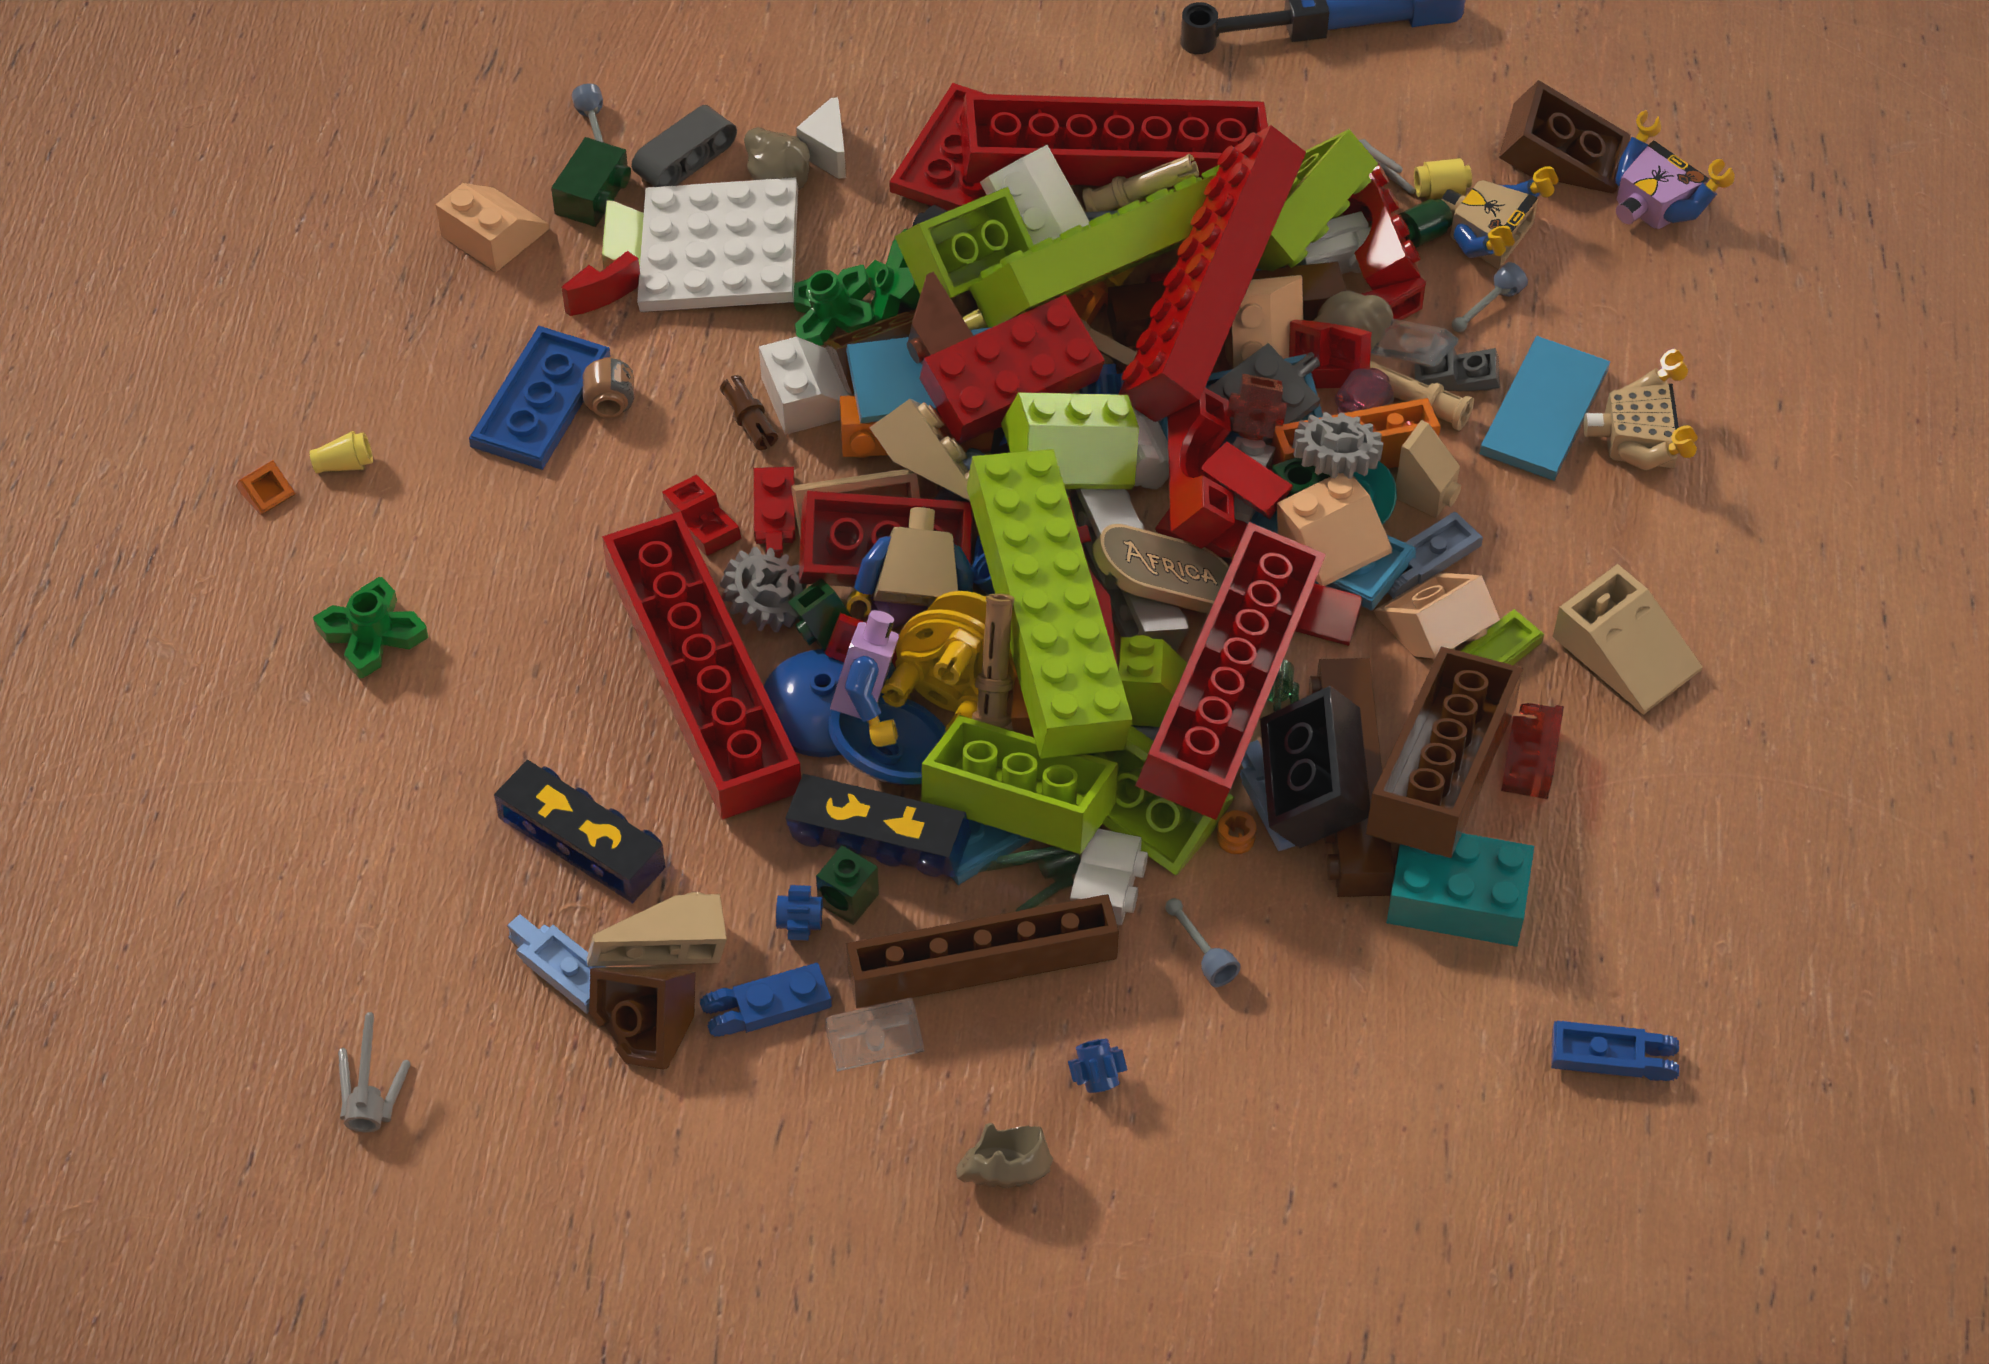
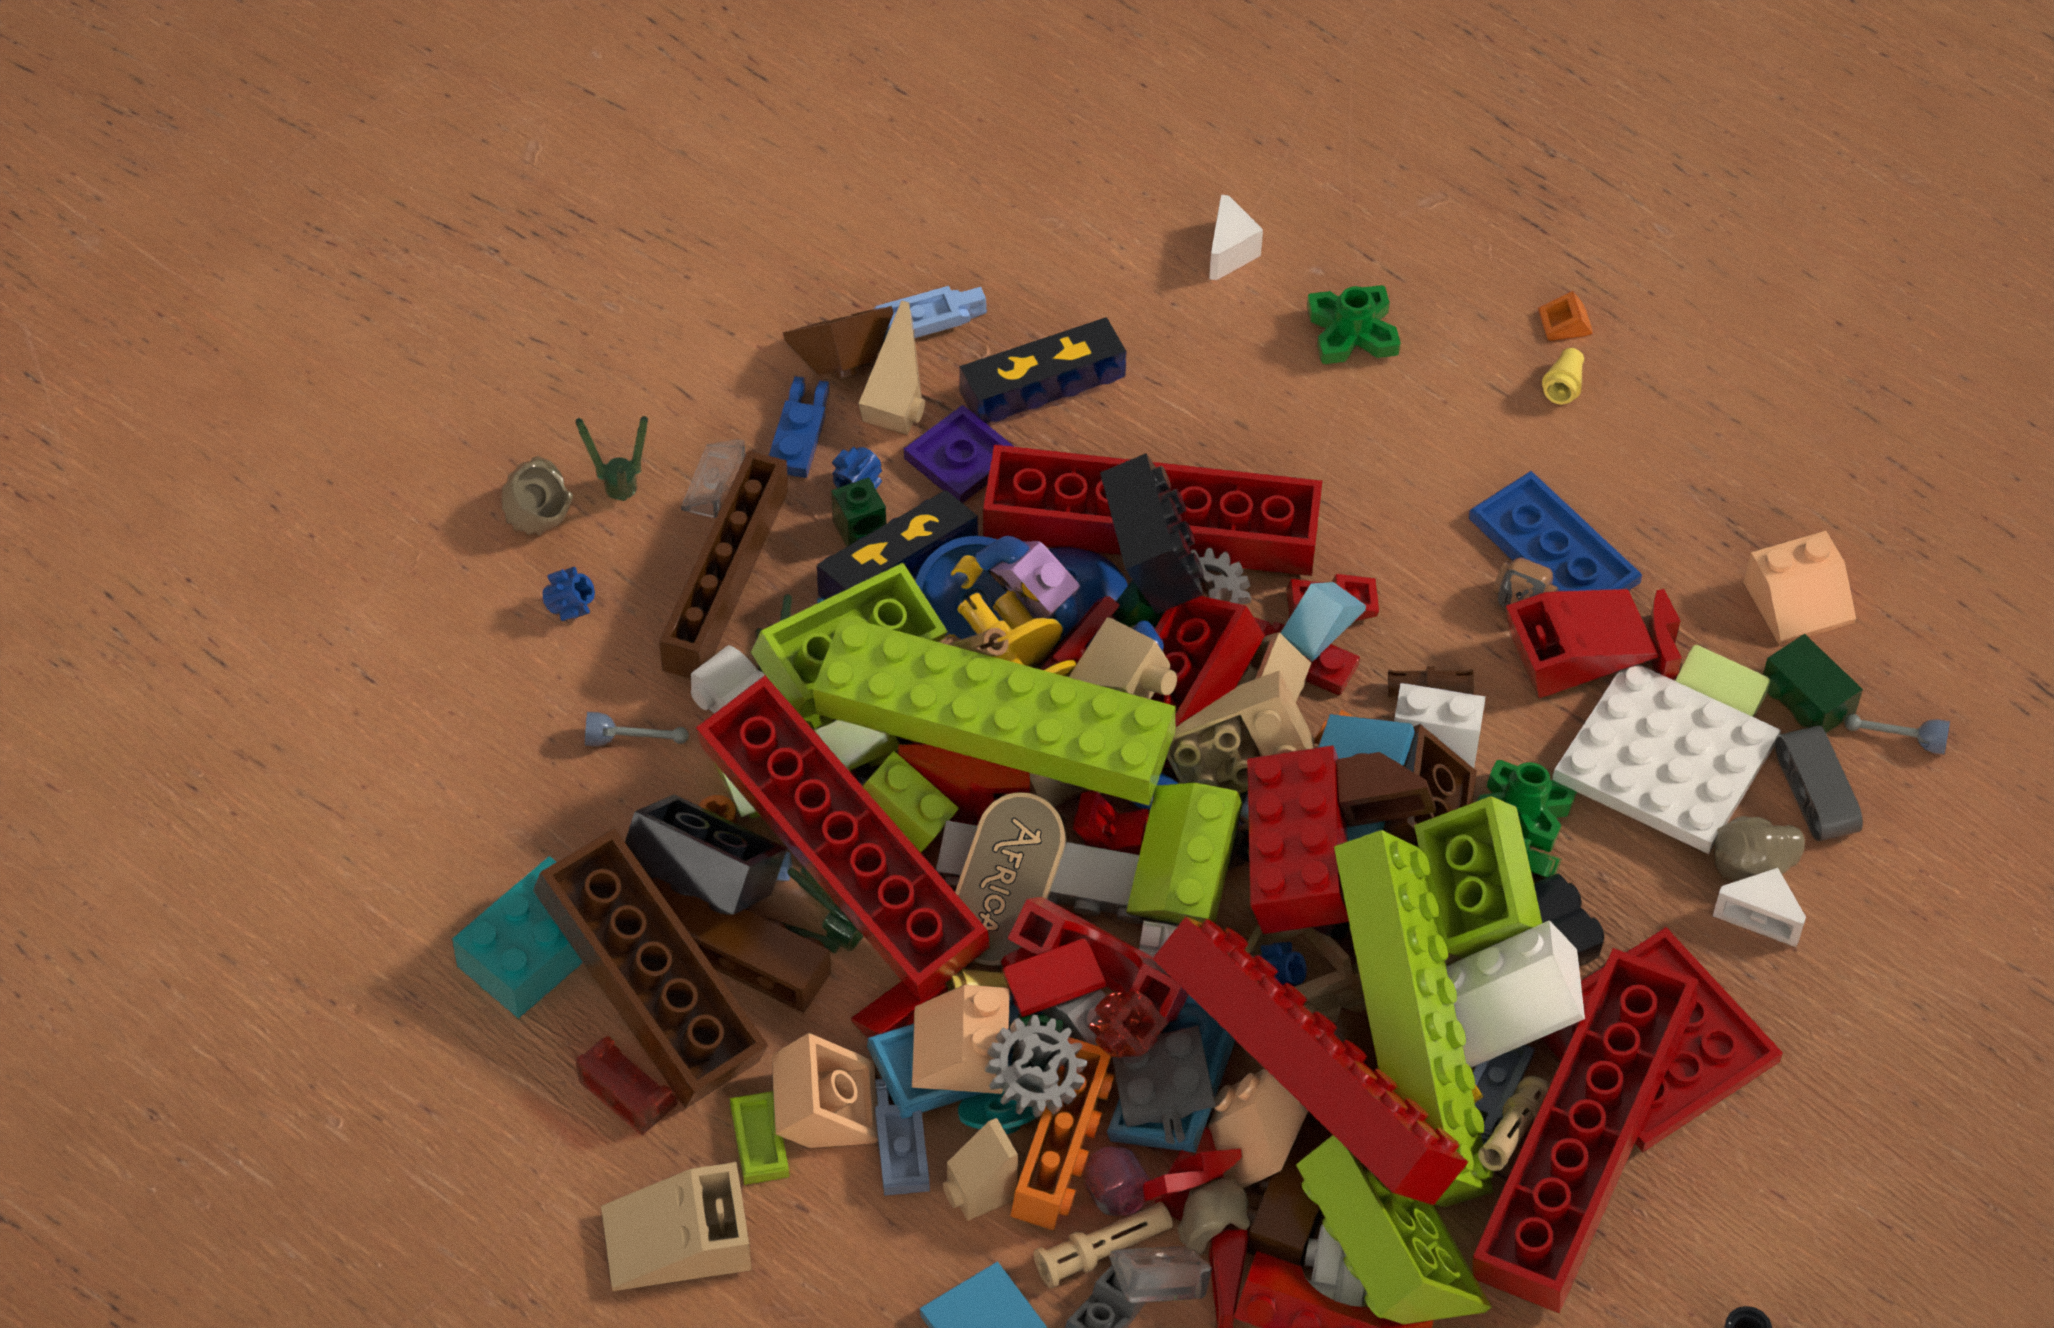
camera: 120 degrees right, 0 degrees up
(318, 761) = (1235, 239): none -> white slope
(365, 1107) = (890, 154): light grey plant -> none
(648, 327) = (1577, 636): none -> red slope
(713, 856) = (956, 453): none -> dark purple tile
(743, 488) = (1321, 618): none -> medium azure slope
(776, 581) = (1152, 533): none -> black brick
(928, 1107) = (619, 473): none -> clear green plant
(1613, 1050) = (302, 960): blue hinge -> none

